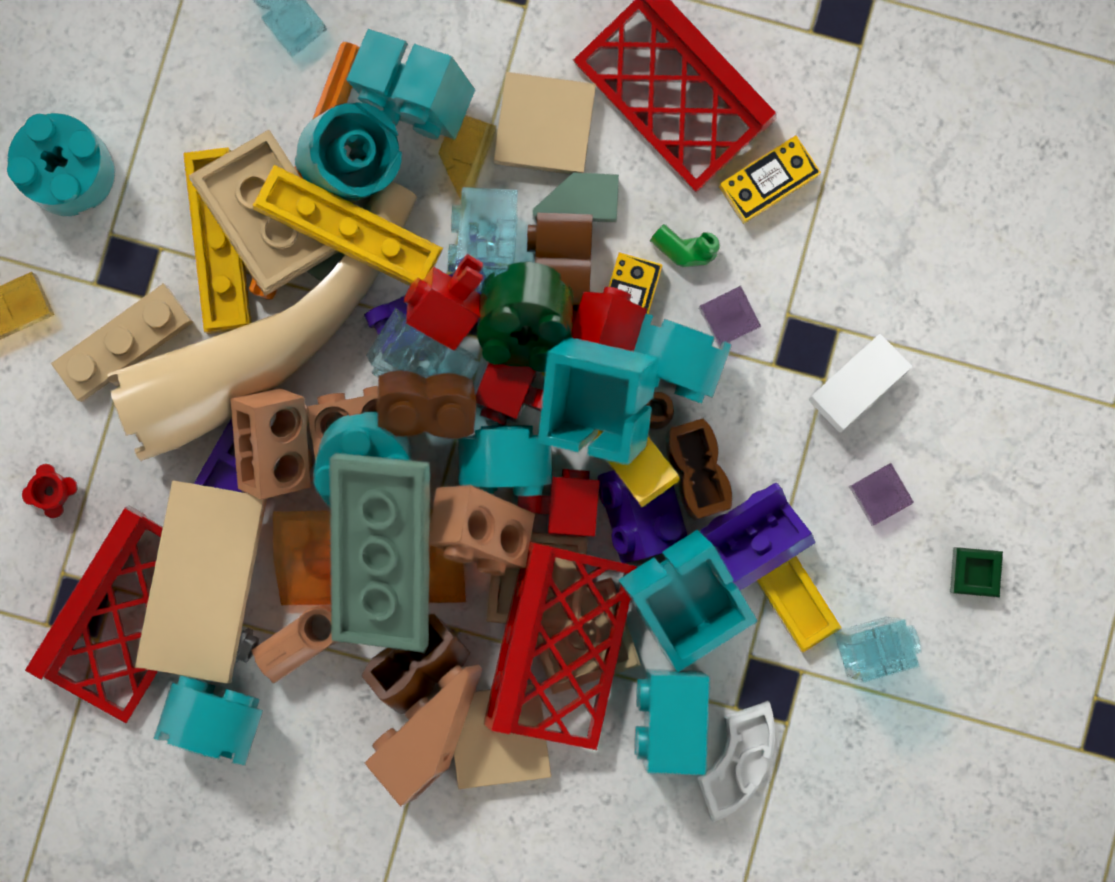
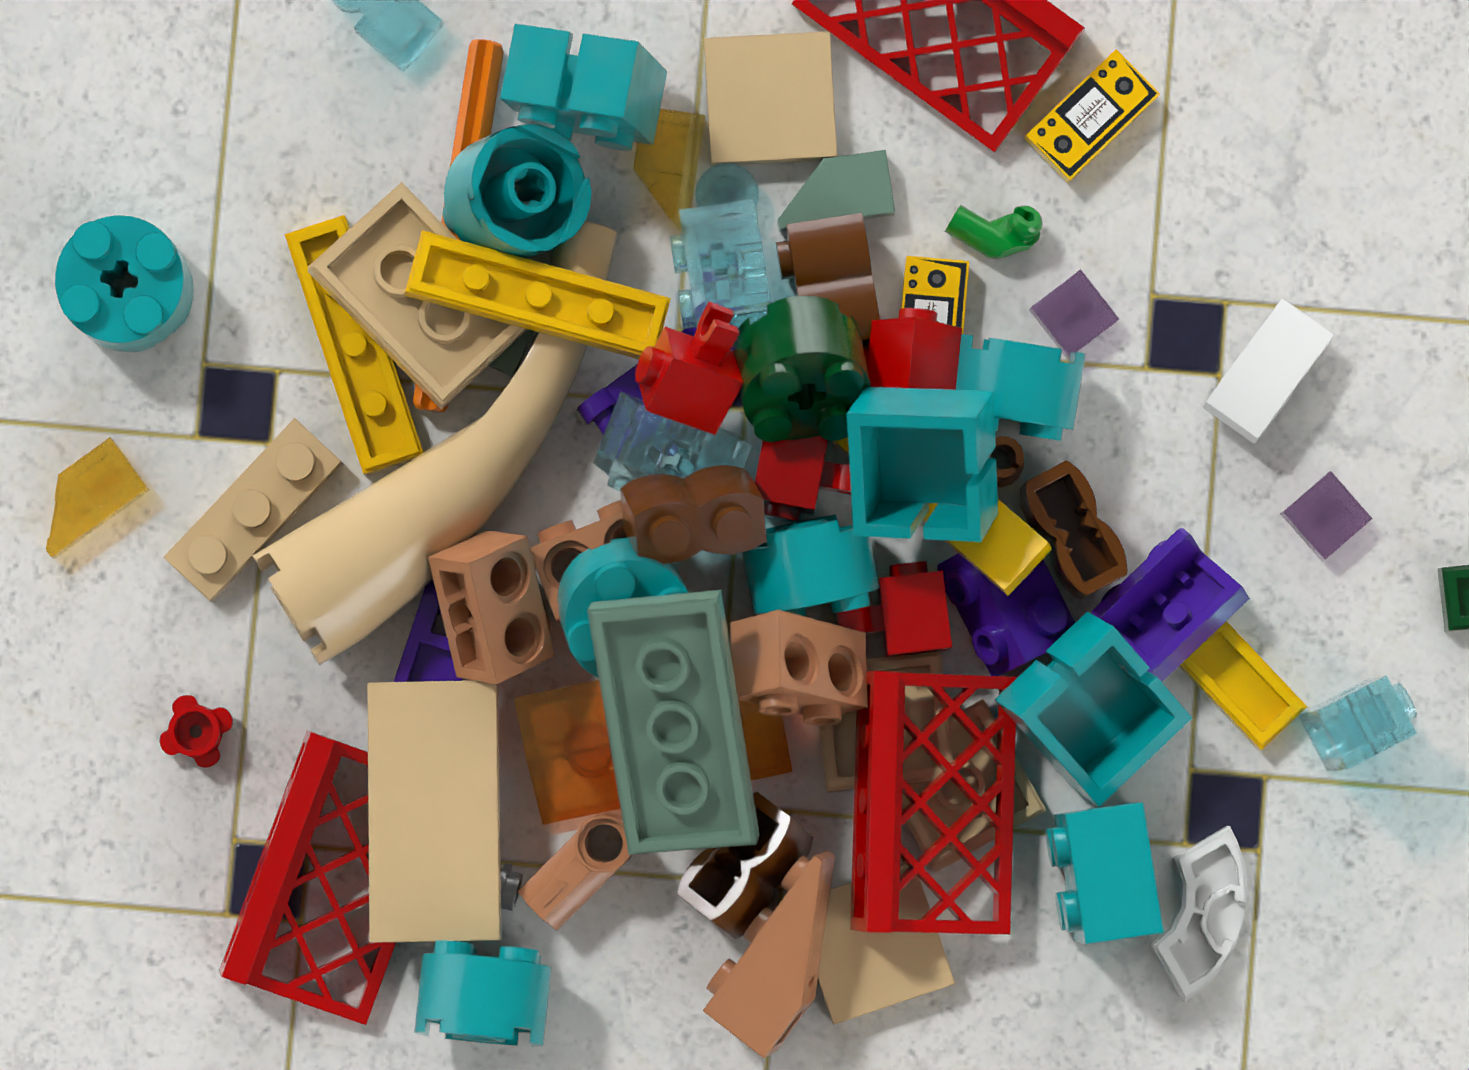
camera: 15 degrees left, 0 degrees up
(501, 176) = (725, 184): none -> clear light blue tile

